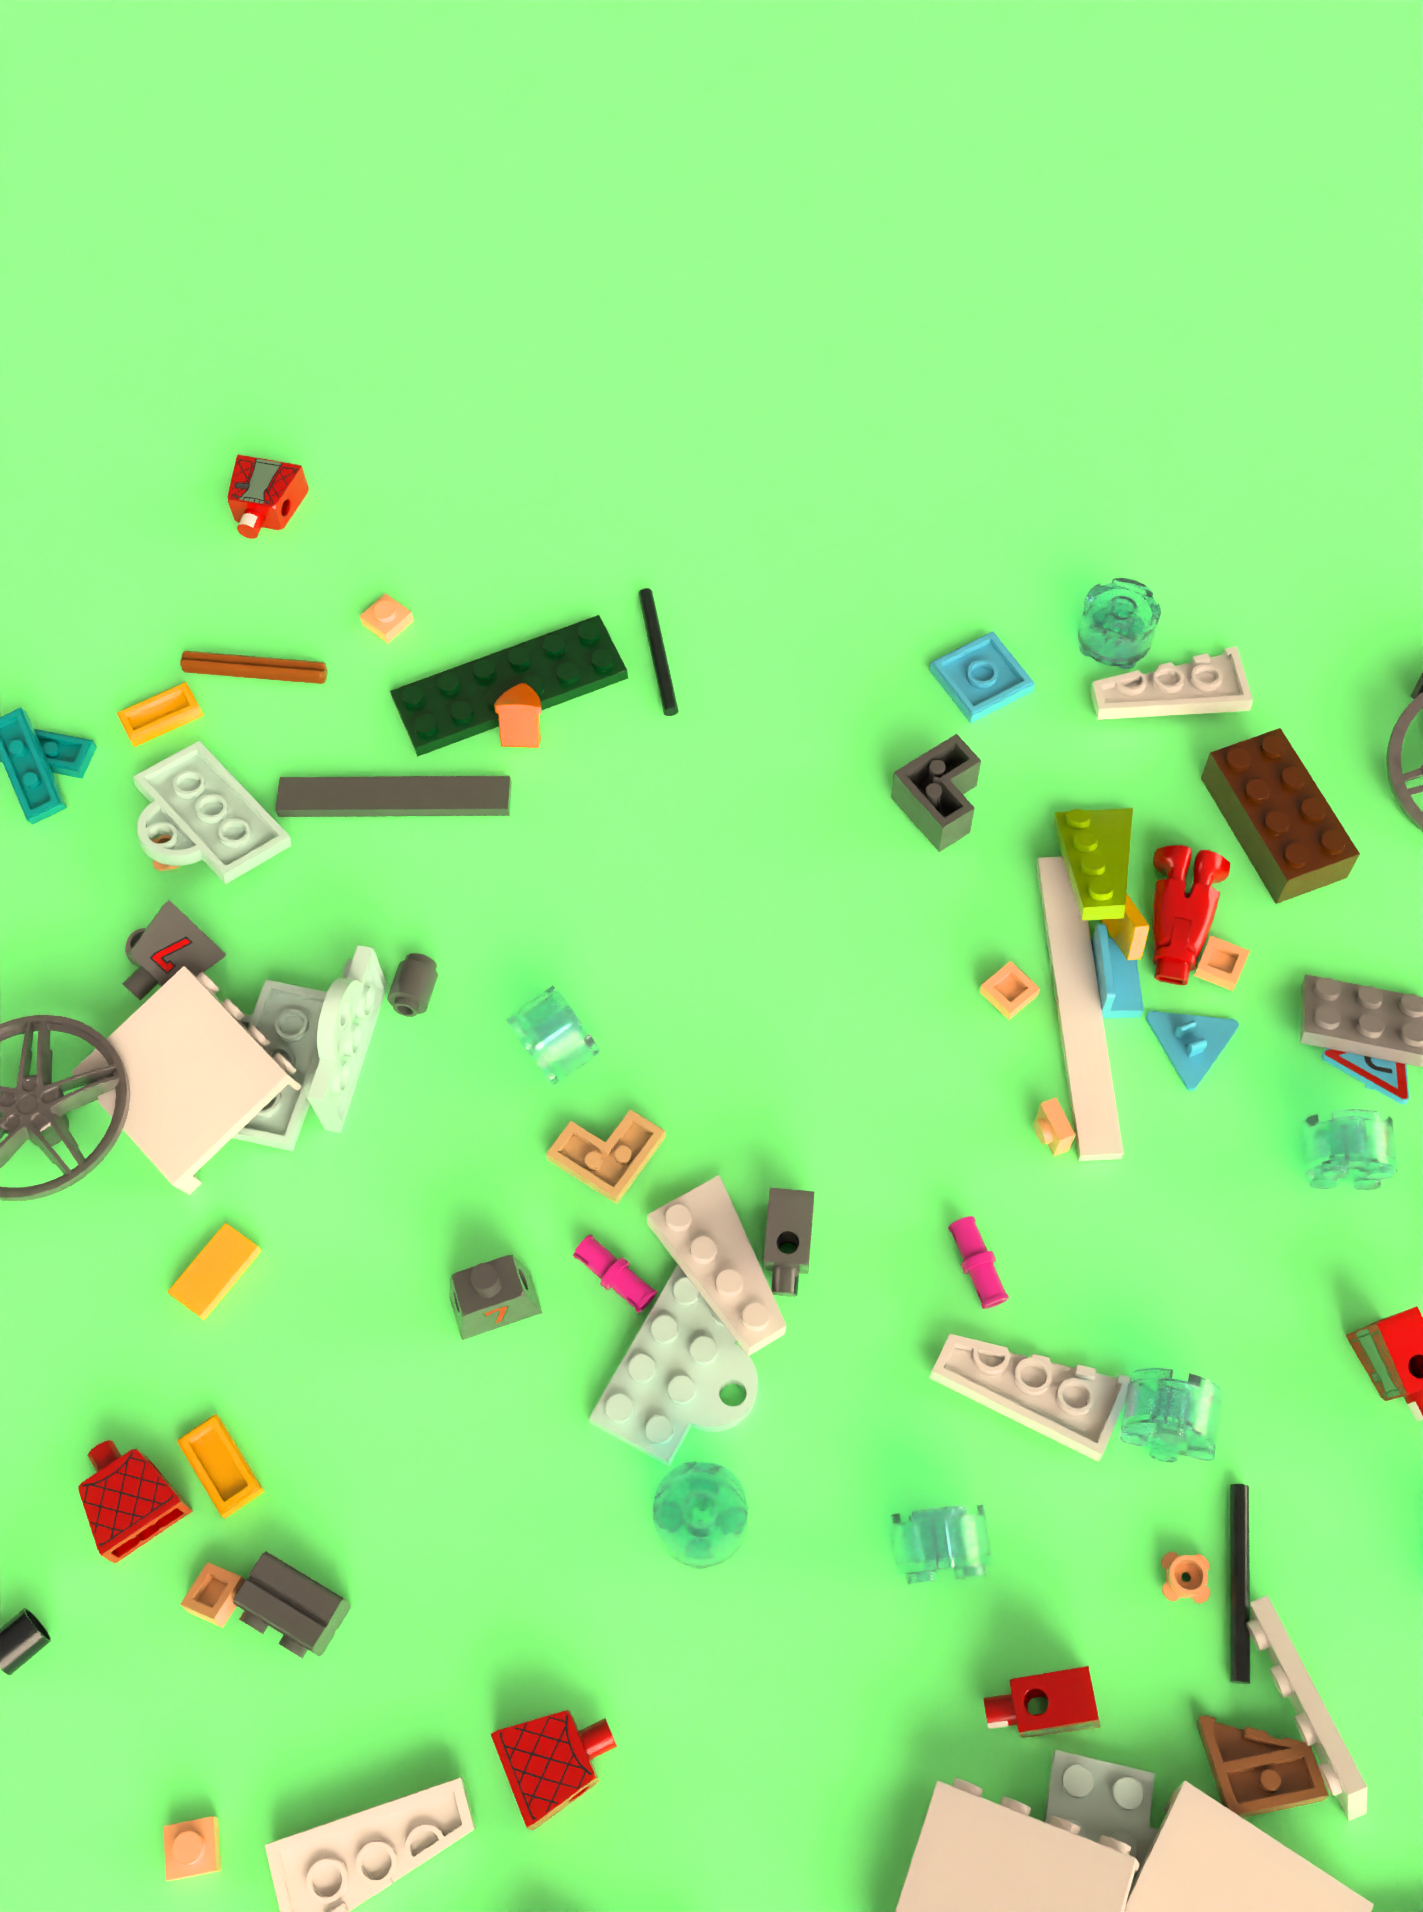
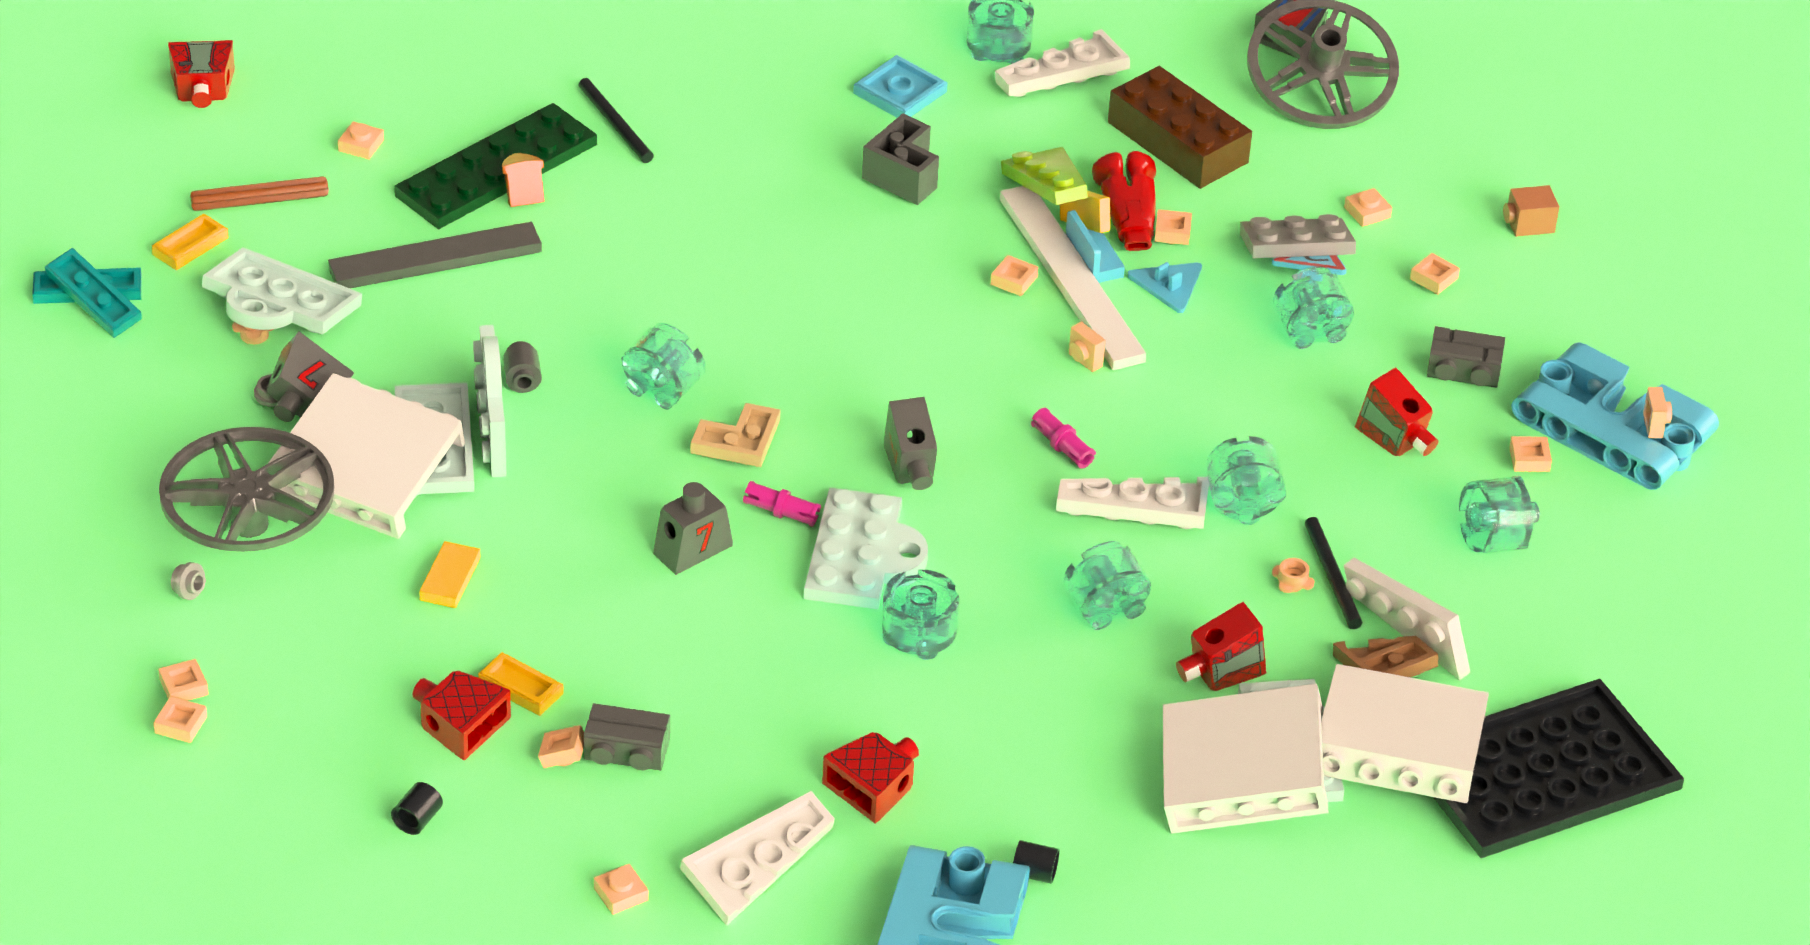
camera: 25 degrees left, 20 degrees down
(719, 1260) = (863, 473): white wing -> none

